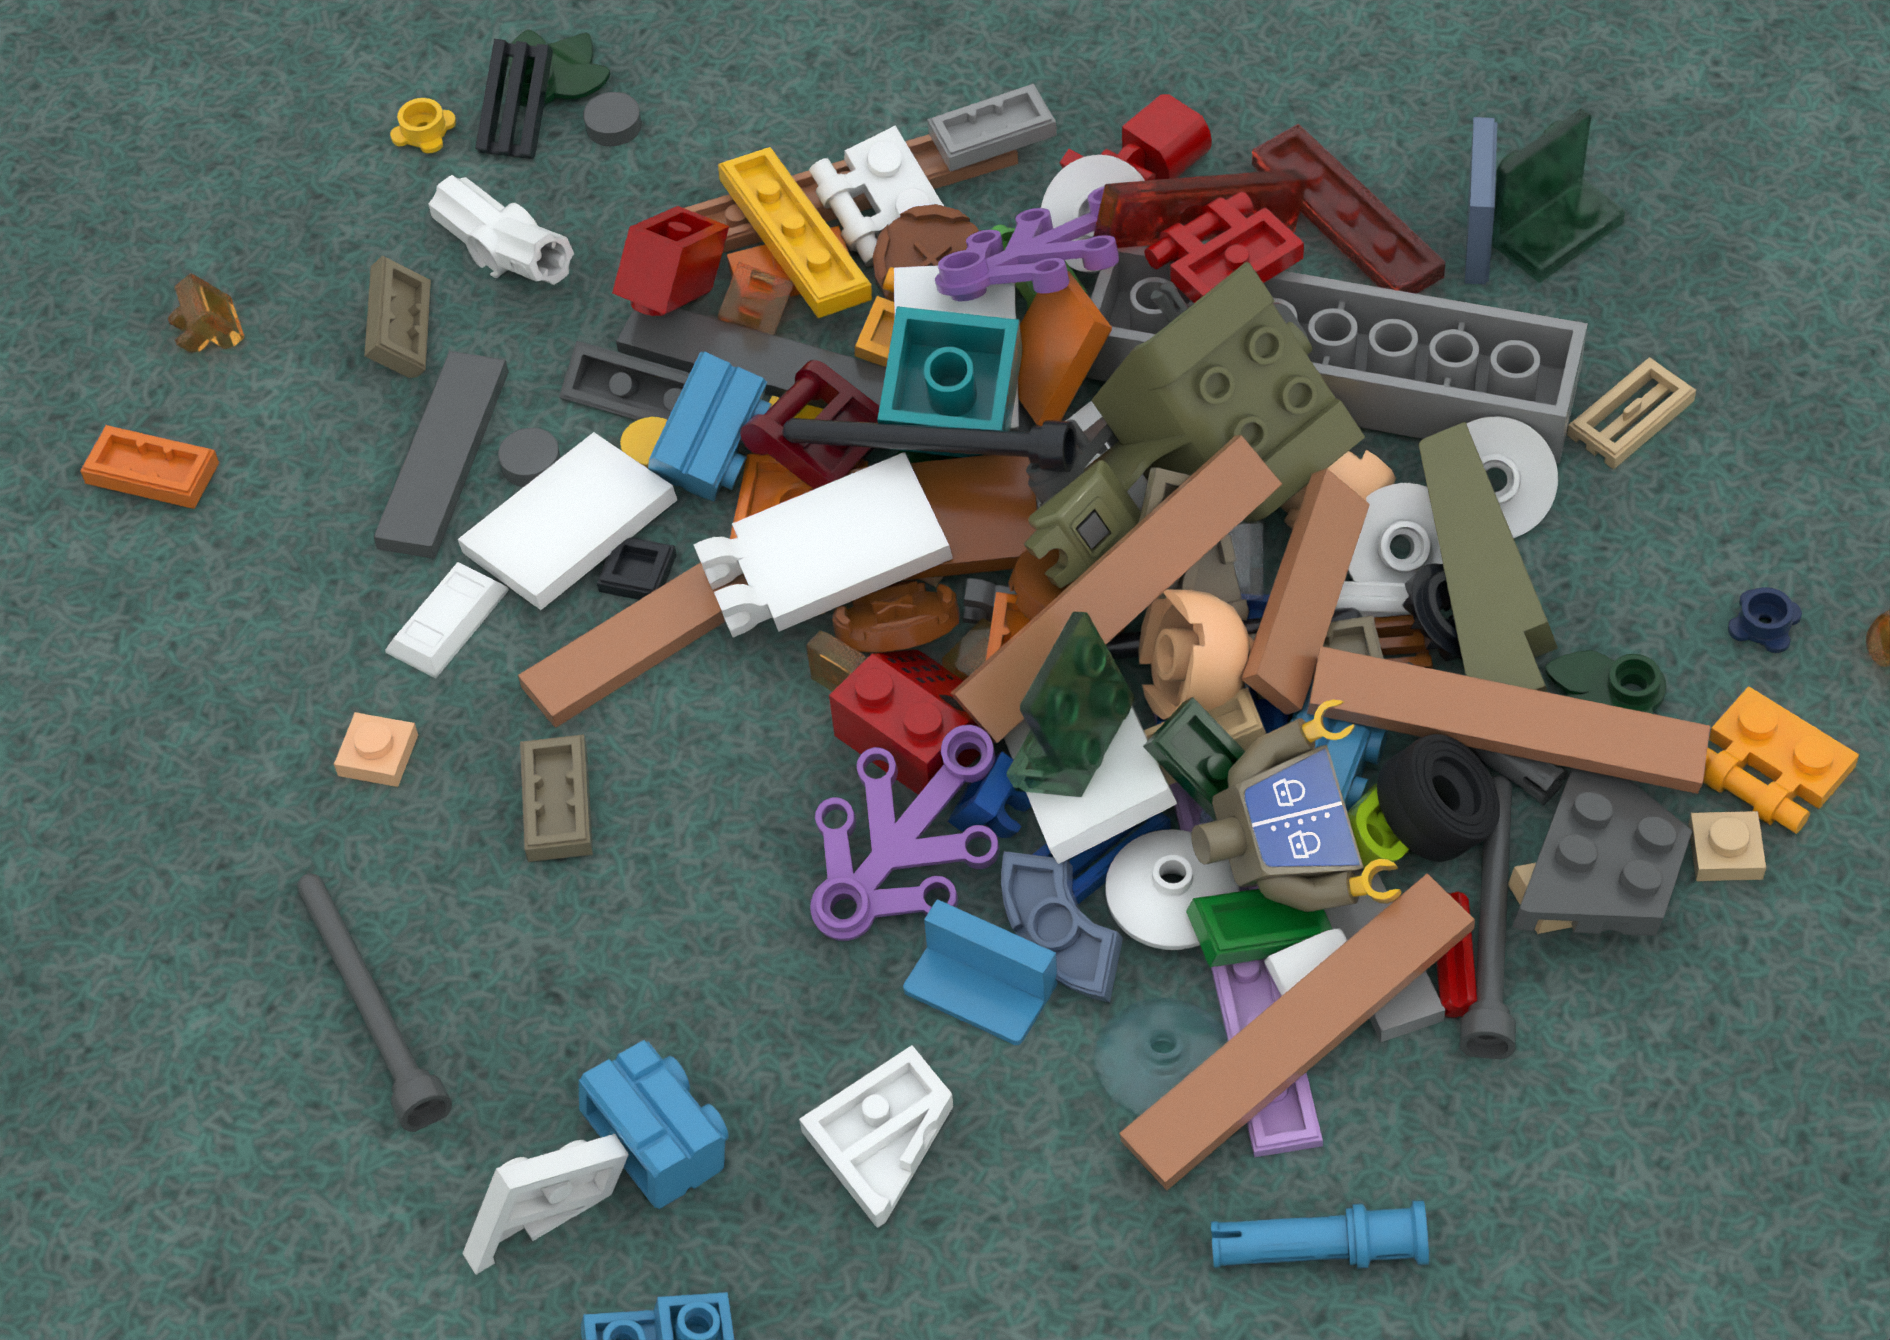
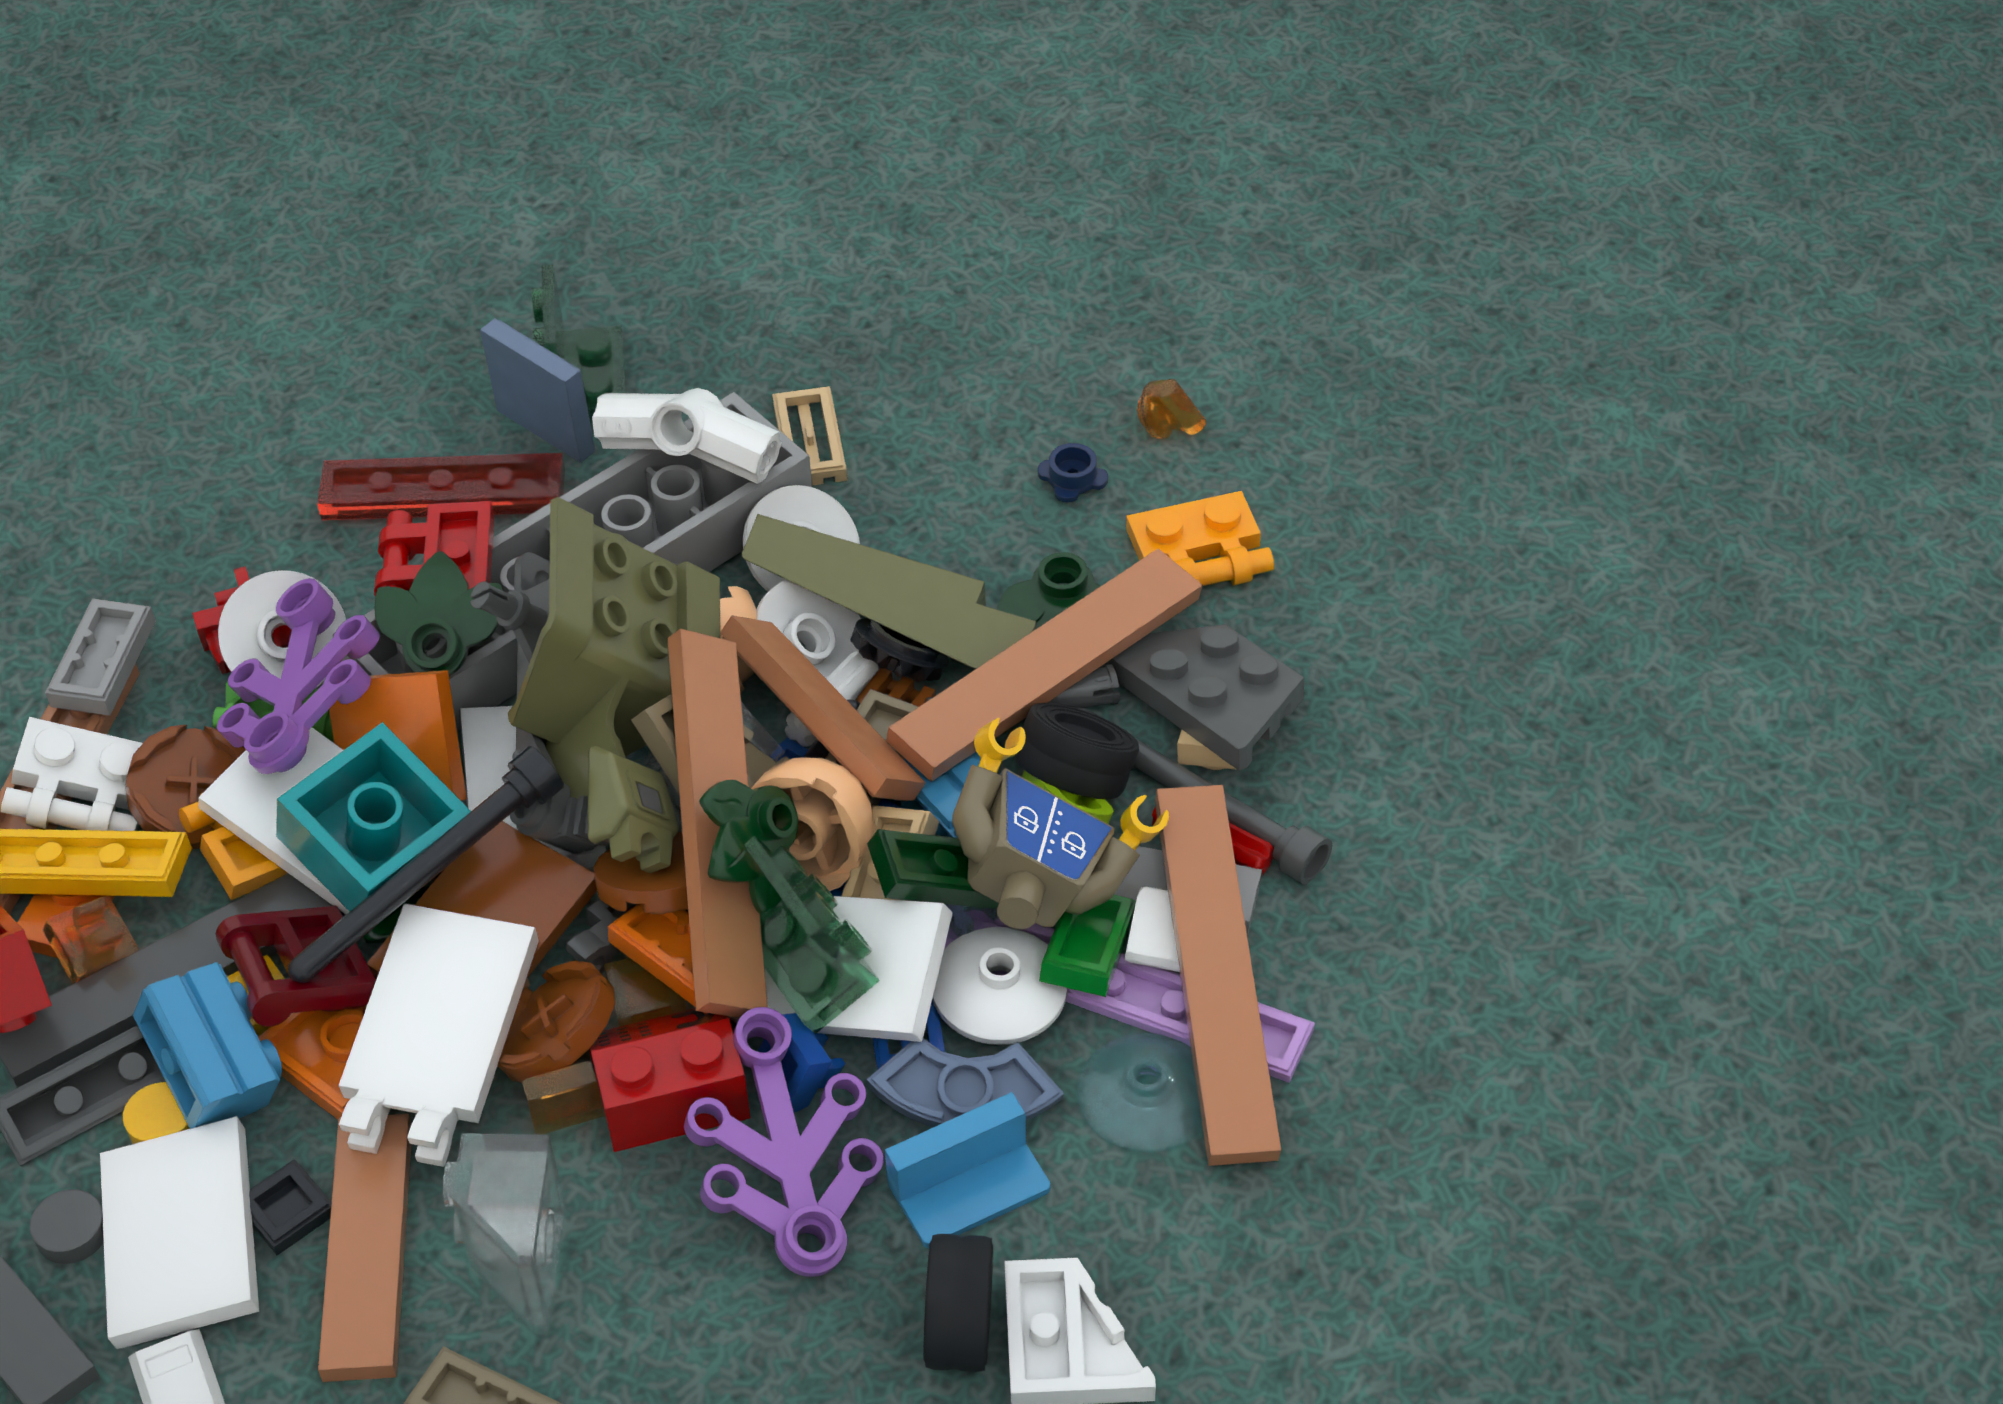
camera: 60 degrees left, 5 degrees down
(695, 705) = (510, 1219): none -> clear slope
(842, 1032) = (958, 1302): none -> black tyre
(1113, 603) = (741, 815): none -> dark green plate
(1143, 209) = (346, 574): clear red plate -> none
(1144, 270) = (432, 609): none -> dark green plate
(1170, 135) = (238, 541): red piece -> none
(1358, 1235) = (1424, 1049): dark azure pin -> none
(1502, 316) = (657, 424): none -> white piece
(1727, 846) = (1253, 612): tan plate -> none

